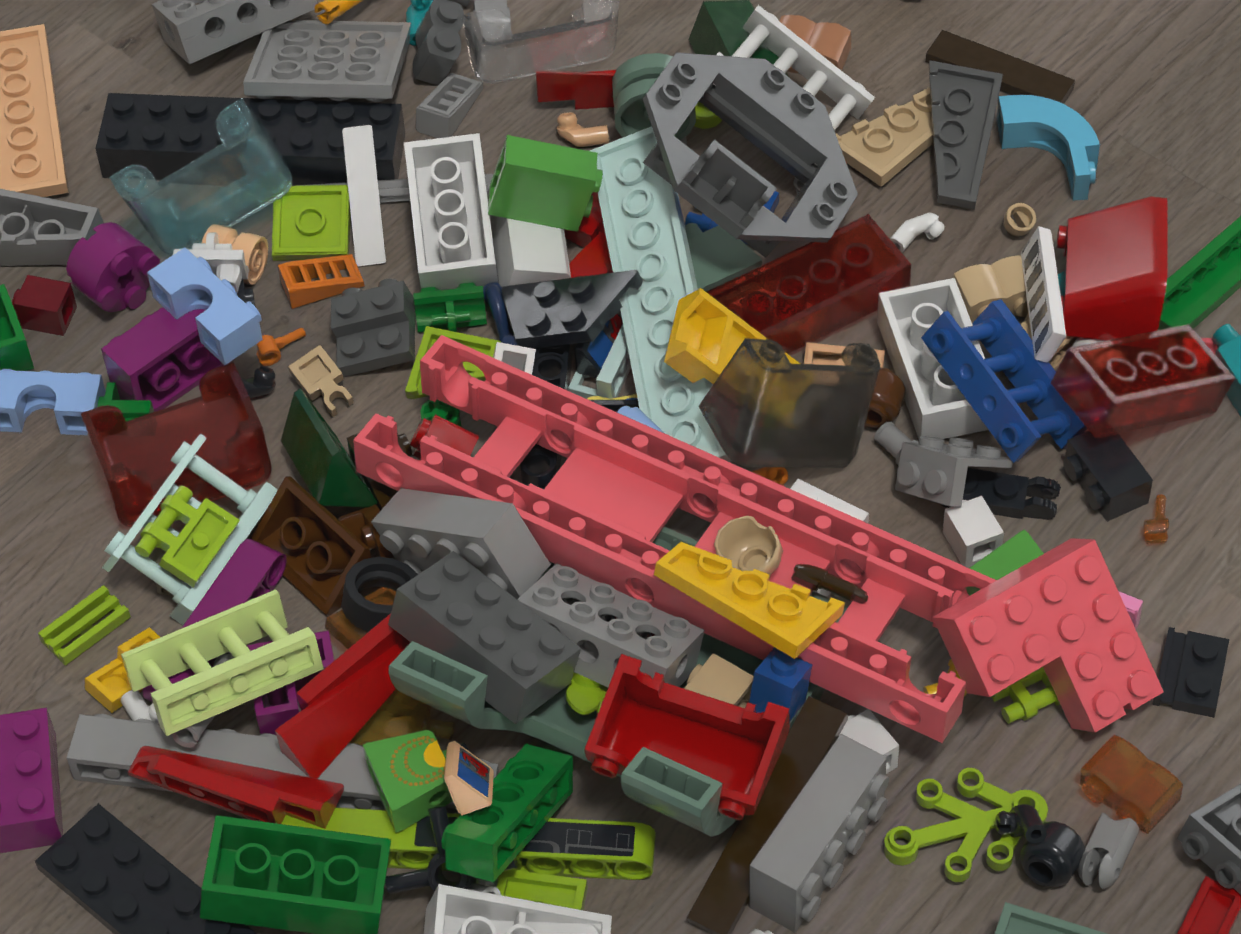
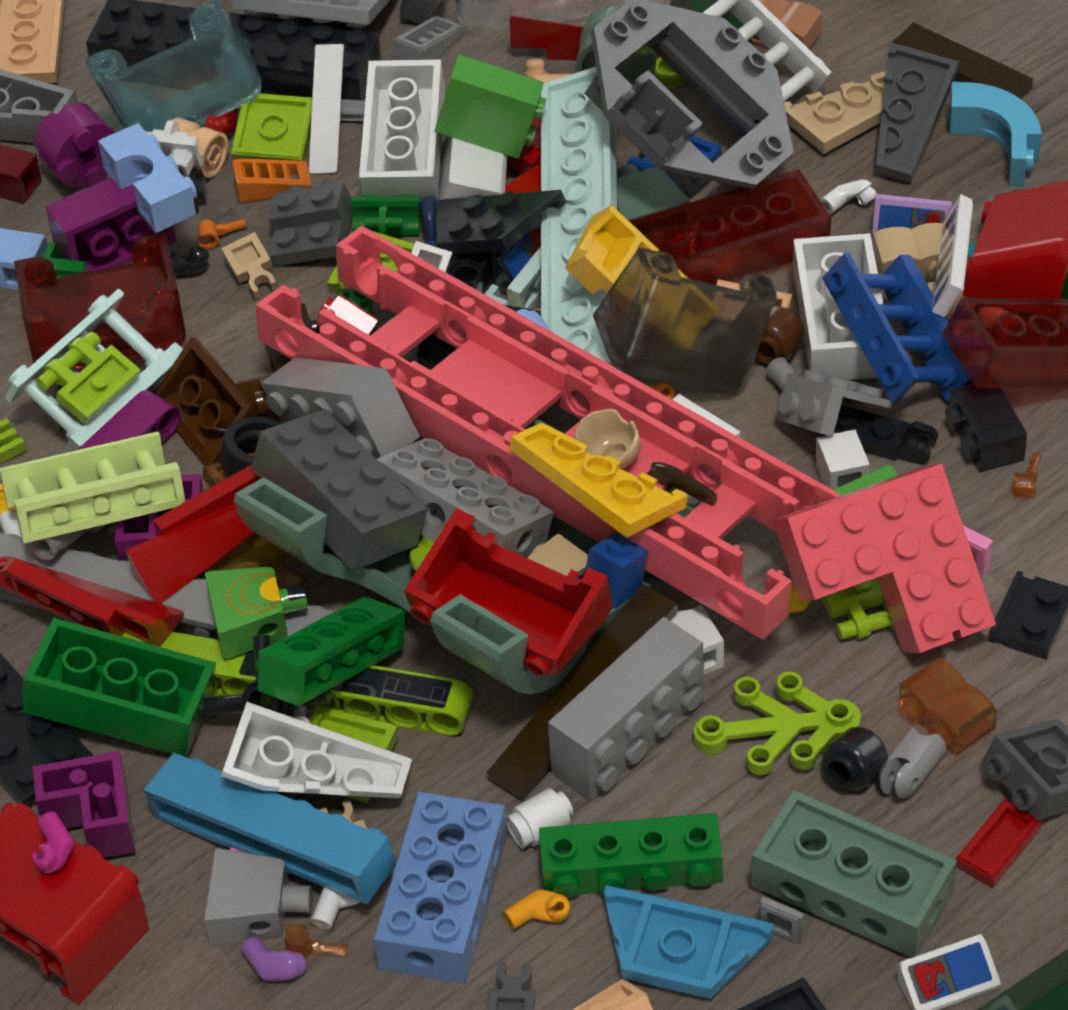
camera: 10 degrees right, 5 degrees down
(256, 223) = (224, 123): none -> red arm
(322, 457) = (233, 326): dark green slope -> none
(467, 779) = (293, 611): light nougat slope -> none
(982, 247) = (907, 211): none -> slope
(1021, 821) = (828, 725): black arm -> none
(1024, 217) = (954, 189): tan hinge -> none

